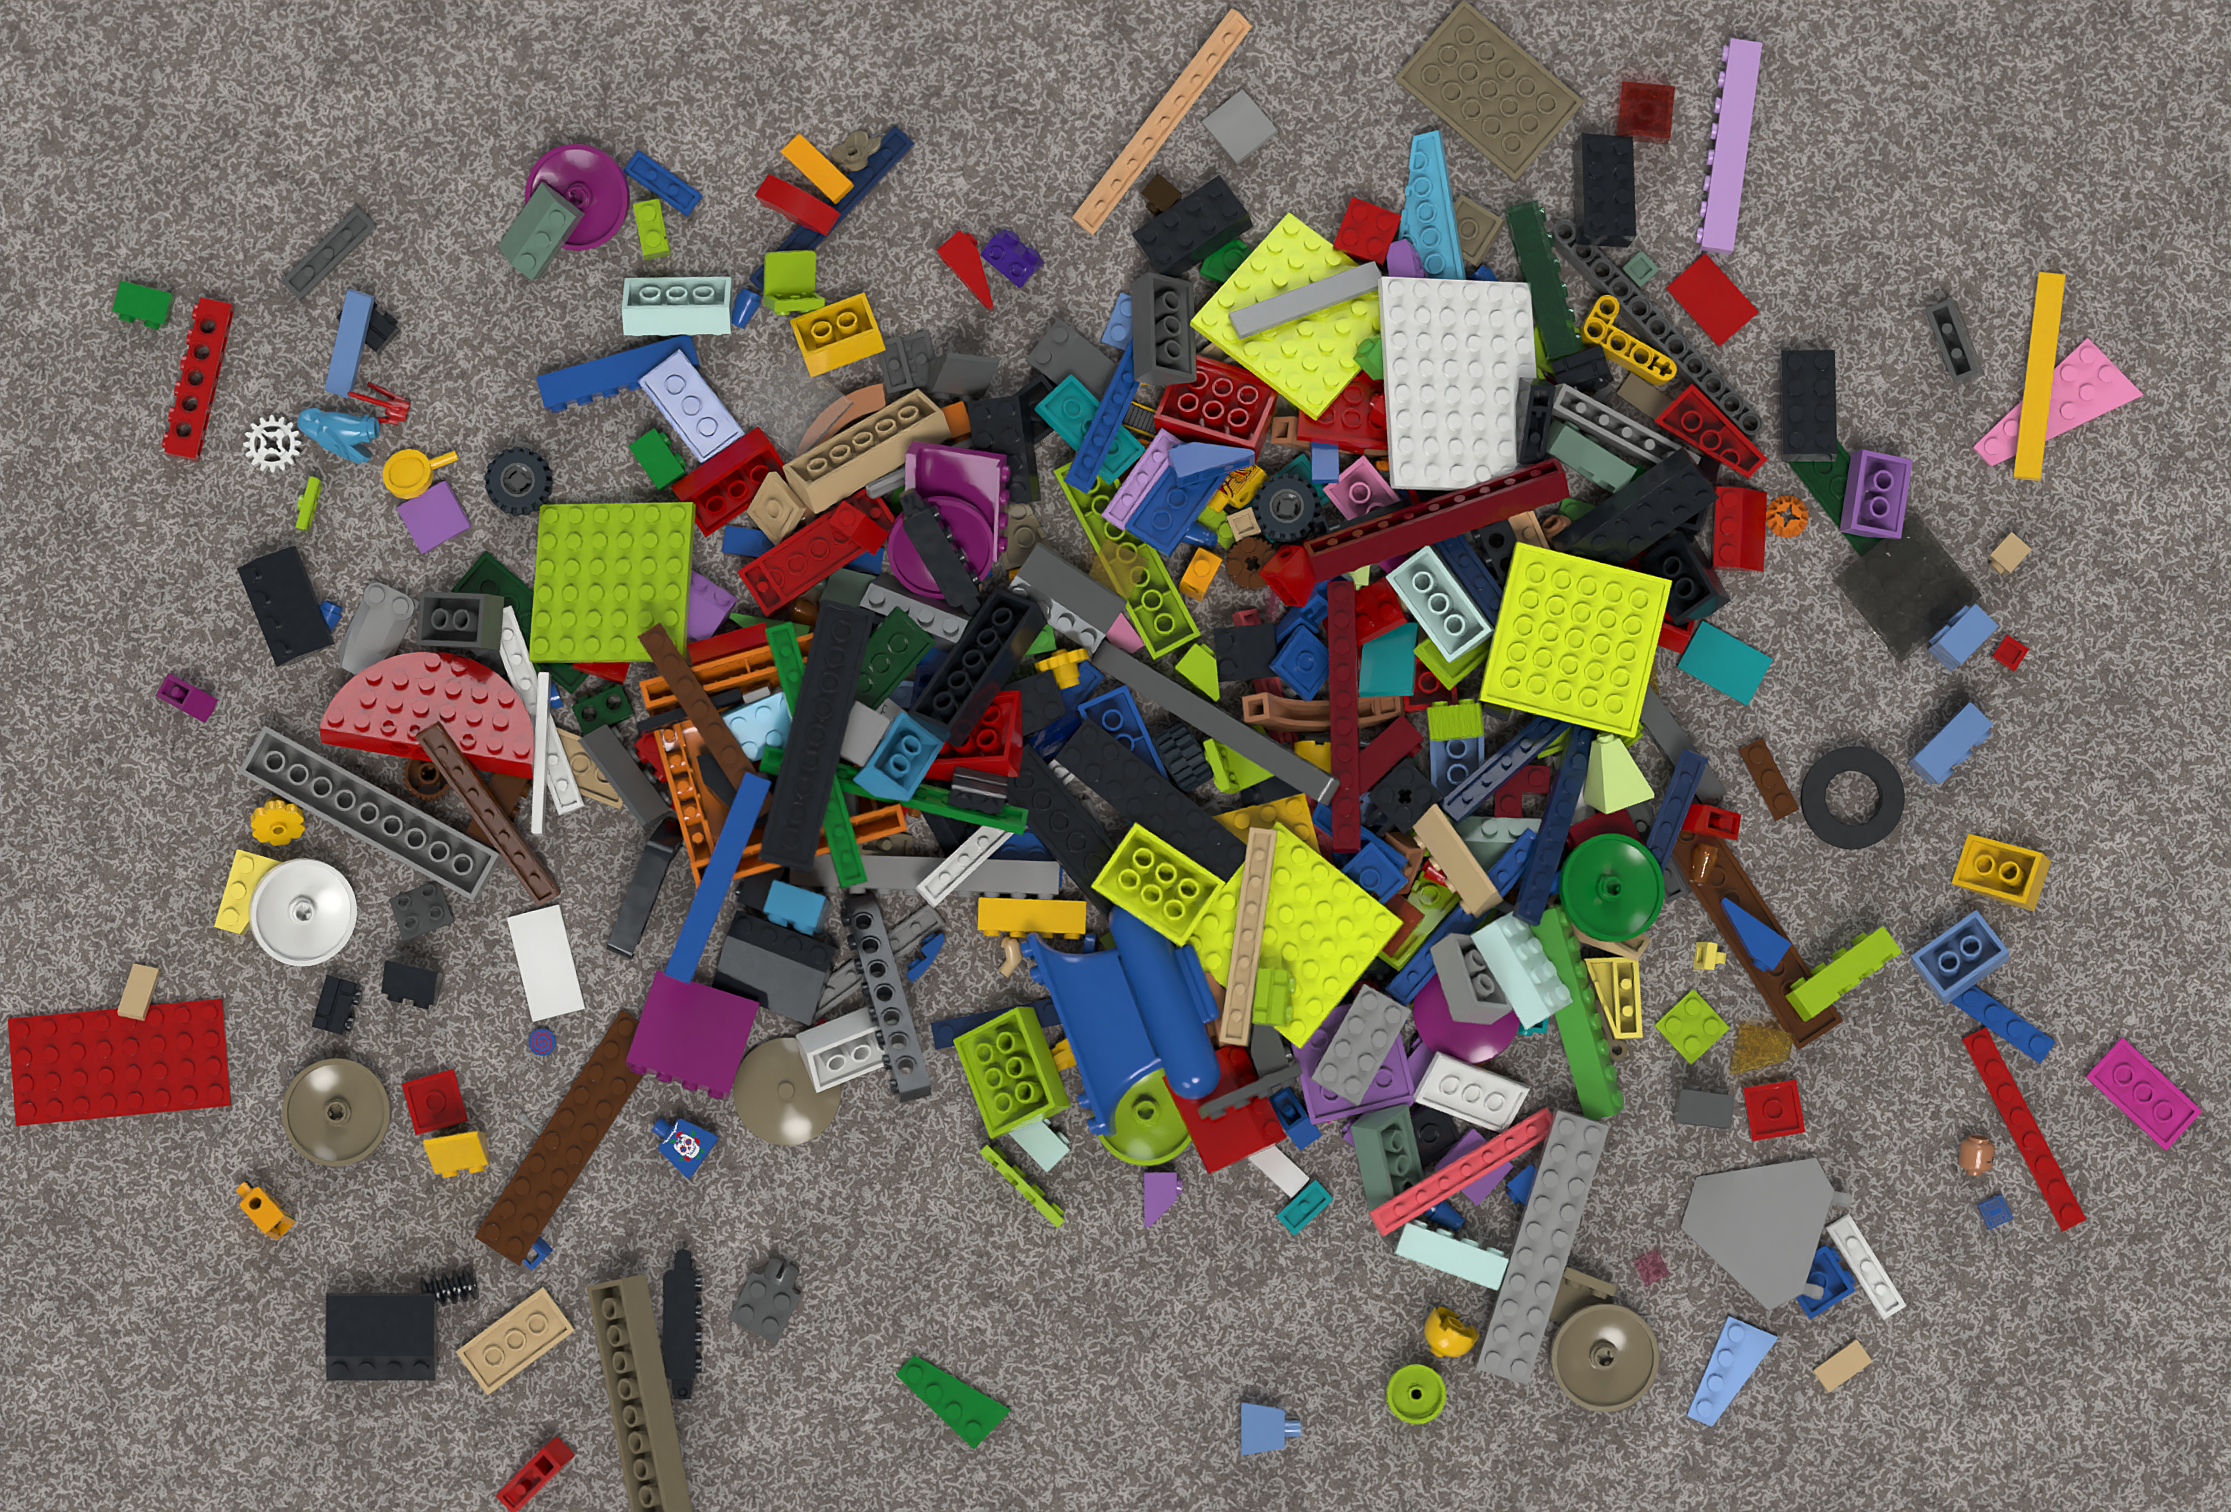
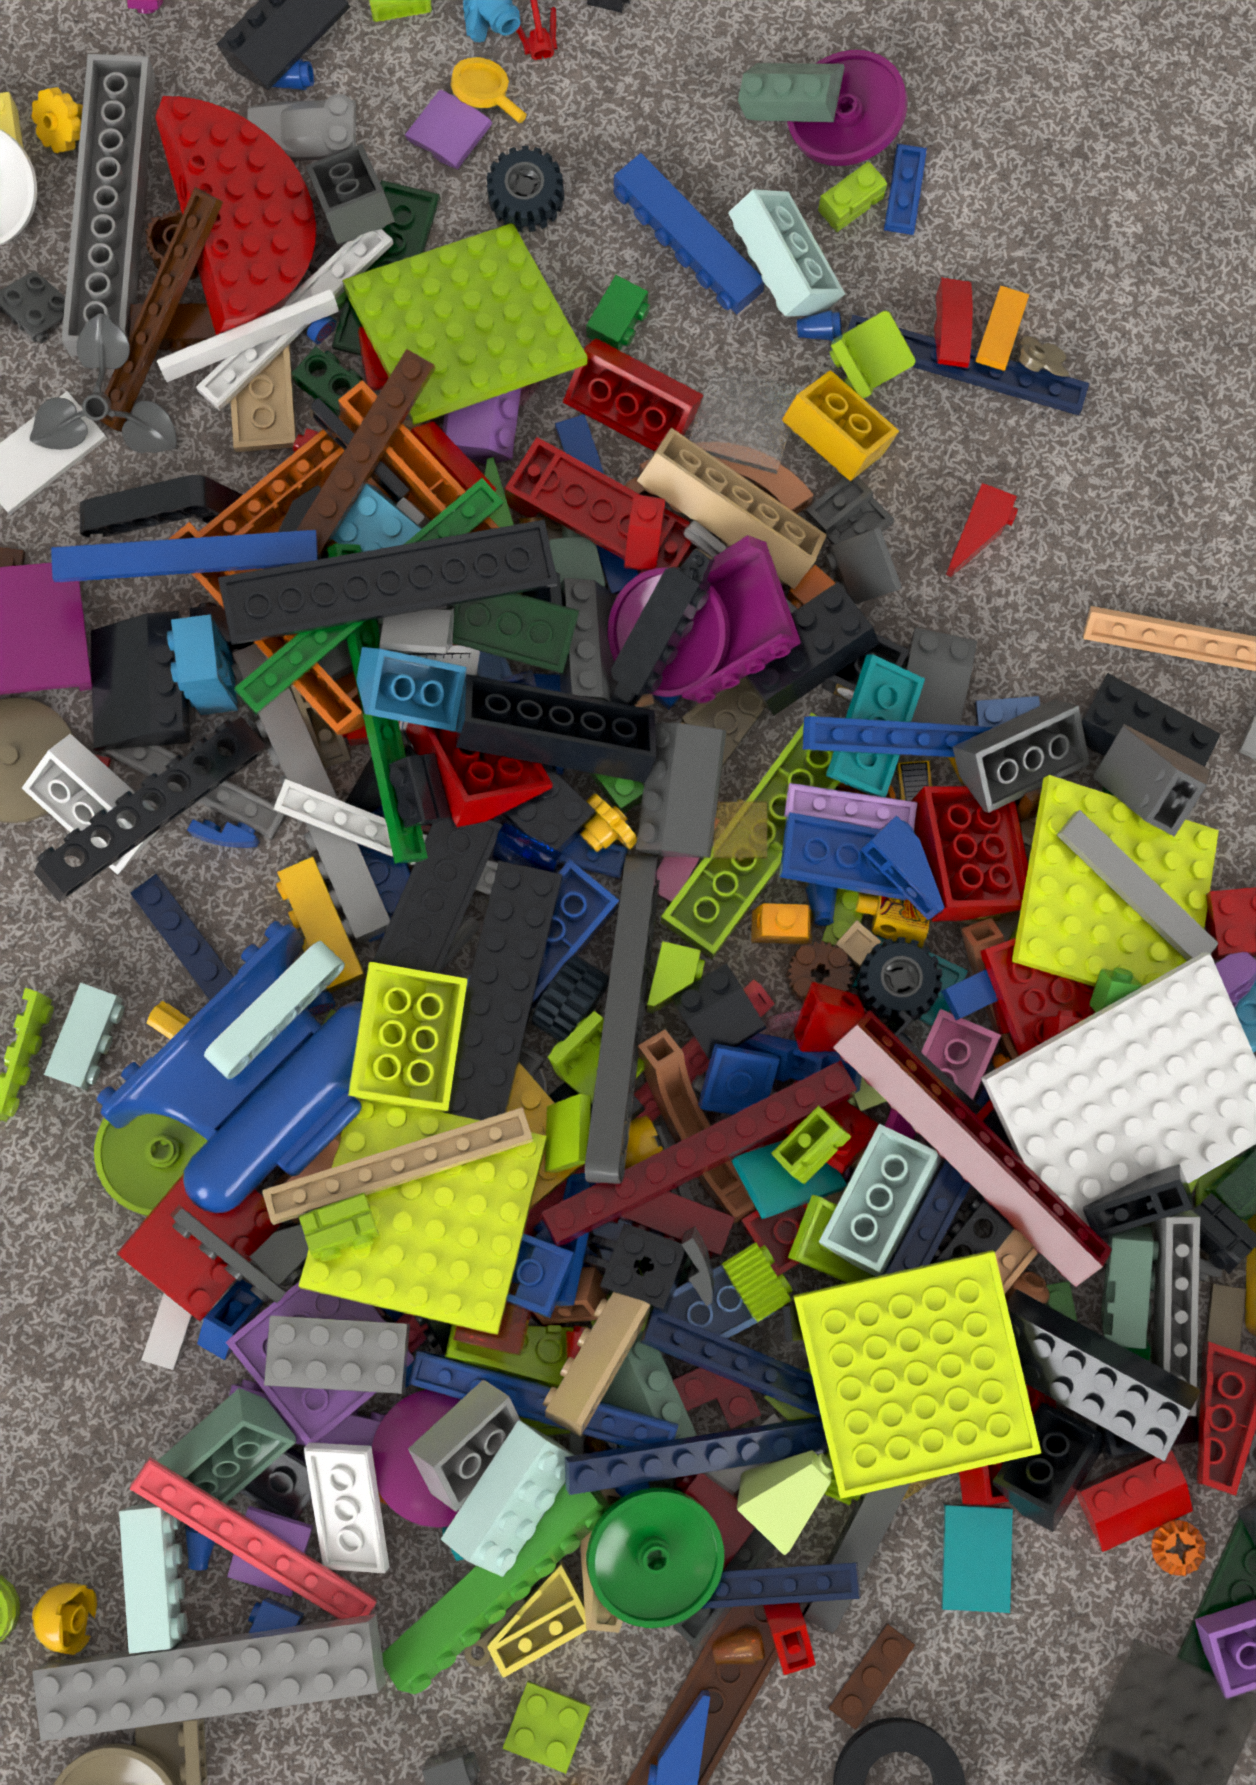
camera: 60 degrees right, 5 degrees down
(539, 932) = (61, 427): none -> dark grey plant
(625, 776) = (264, 427): dark grey slope -> none
(691, 406) = (690, 317): tile -> none
(776, 508) = (627, 449): tan plate -> none
(1011, 1072) = (135, 983): lime slope -> none
(1012, 257) = (1016, 565): dark purple bracket -> none
(1013, 955) = (258, 927): tan arm -> none
(1089, 973) = (274, 1010): none -> light aqua beam
(1159, 1194) = (78, 1210): medium lavender slope -> none
(1160, 195) = (1164, 683): dark brown brick -> none
(1203, 345) = (1029, 805): none -> reddish brown tile
(1231, 246) = (1152, 779): none -> dark grey slope
(1283, 804) = (567, 1133): none -> lime tile
(1304, 1207) = (136, 1380): teal plate -> none
(1377, 633) = (811, 1144): none -> lime brick
(1427, 756) = (701, 1273): none -> dark grey slope
(1707, 956) = (635, 1705): light yellow tile -> none

